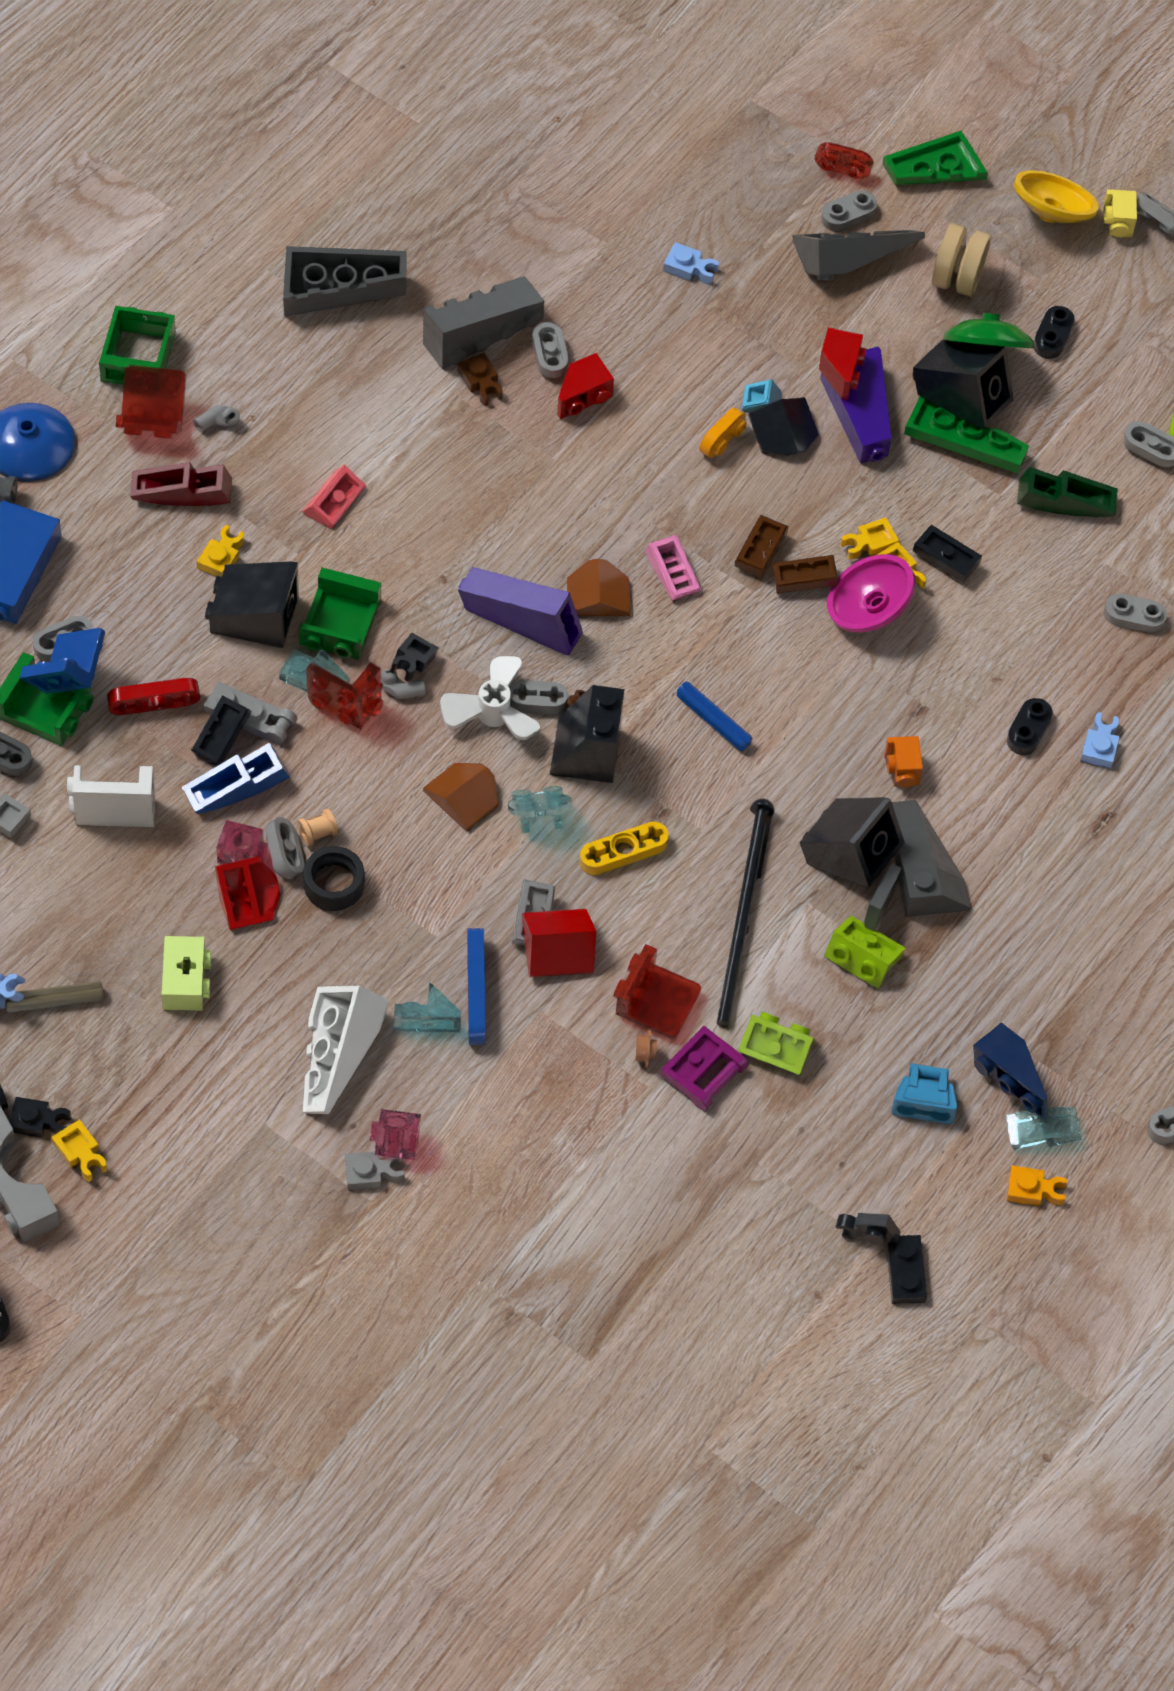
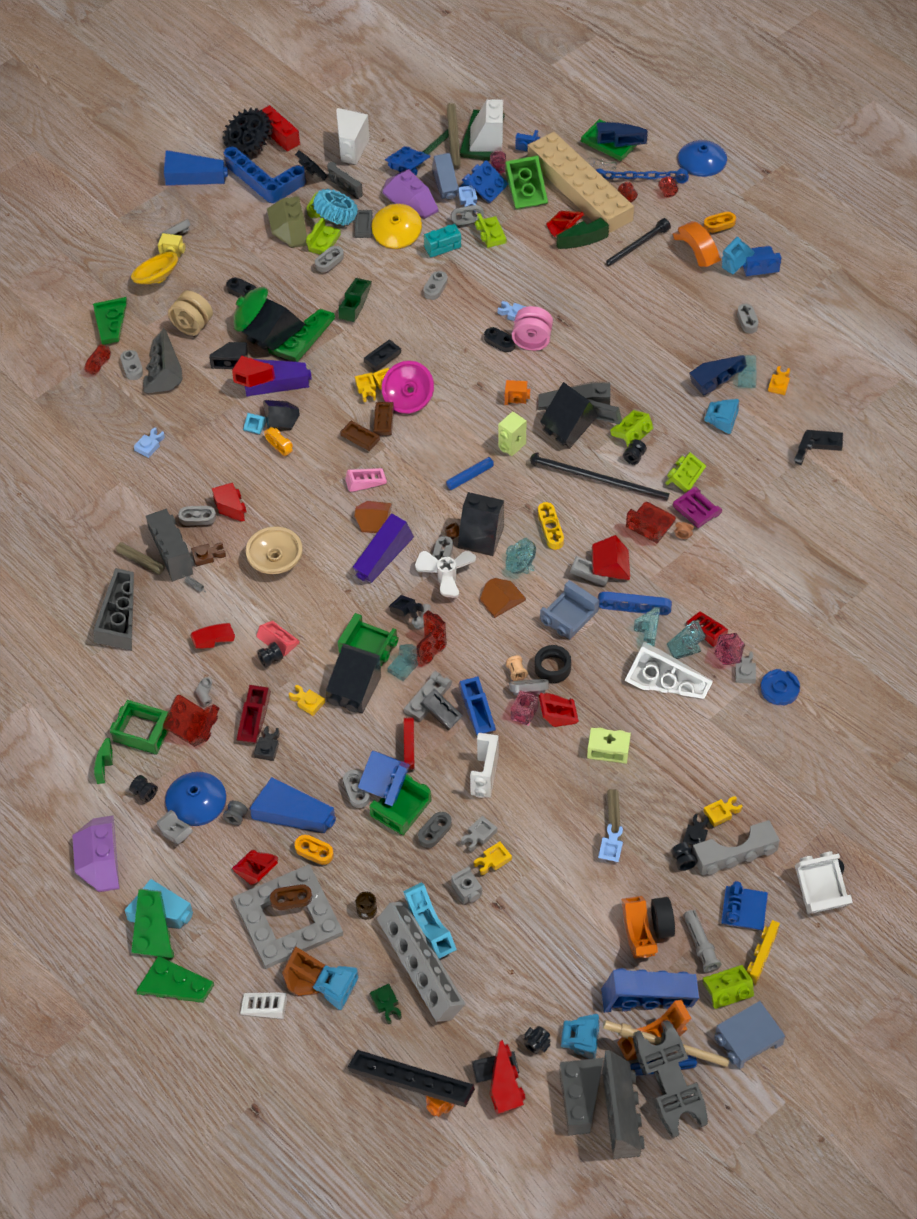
camera: 75 degrees left, 5 degrees down
(30, 370) = (141, 787): none -> black wheel
(81, 311) = (103, 759): none -> green slope
(129, 514) = (268, 746): none -> black plate
(297, 491) = (269, 654): none -> black wheel
(319, 407) = (209, 635): none -> red slope
(341, 1226) = (780, 687): none -> blue tile
(406, 1073) = (687, 641): none -> clear light blue slope
(419, 371) = (195, 584): none -> light grey piece
(438, 1126) = (713, 624): none -> red slope
(444, 892) = (570, 610): none -> sand blue panel
(461, 280) = (140, 558): none -> dark tan axle
(491, 445) = (273, 543): none -> tan dish
(796, 758) = (512, 433): none -> yellowish green brick
(799, 956) = (634, 452): none -> black wheel
(894, 338) = (228, 355): none -> black slope
(1047, 762) = (532, 328): none -> bright pink wheel

